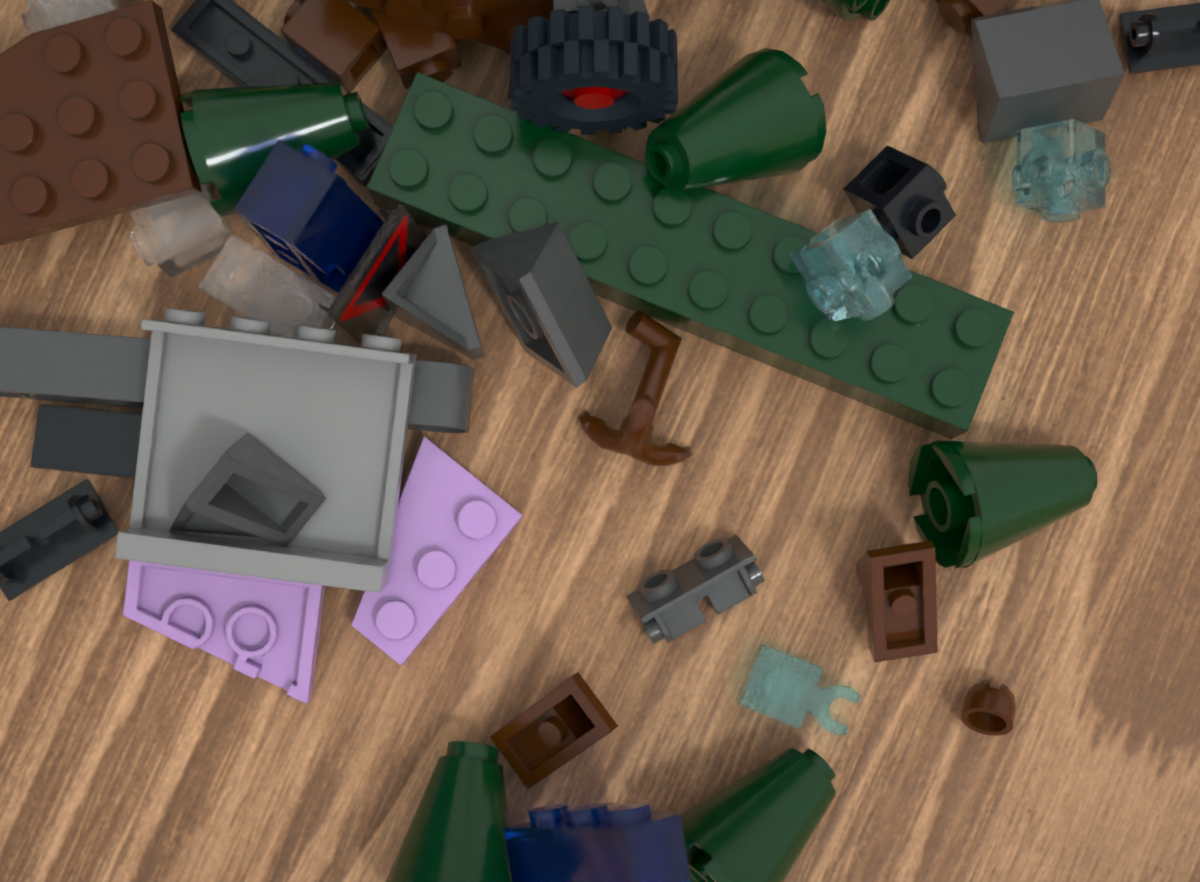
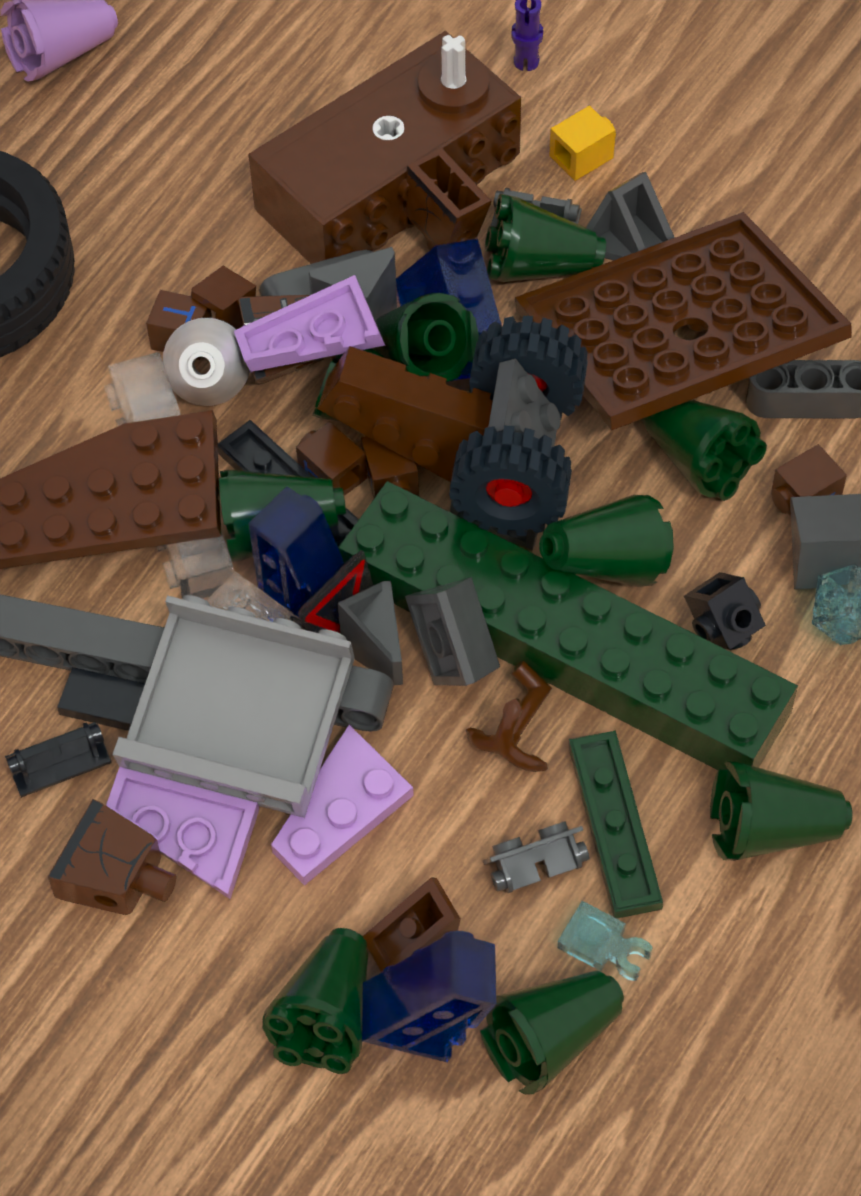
camera: 15 degrees right, 25 degrees down
(145, 687) = (110, 864): none -> reddish brown torso
(250, 496) = (213, 728): dark grey slope -> none
(789, 523) = (615, 825): none -> dark green tile
(852, 268) = (676, 626): clear light blue brick -> none
(900, 600) = (690, 875): reddish brown slope -> none
(989, 709) = (742, 967): reddish brown hinge -> none

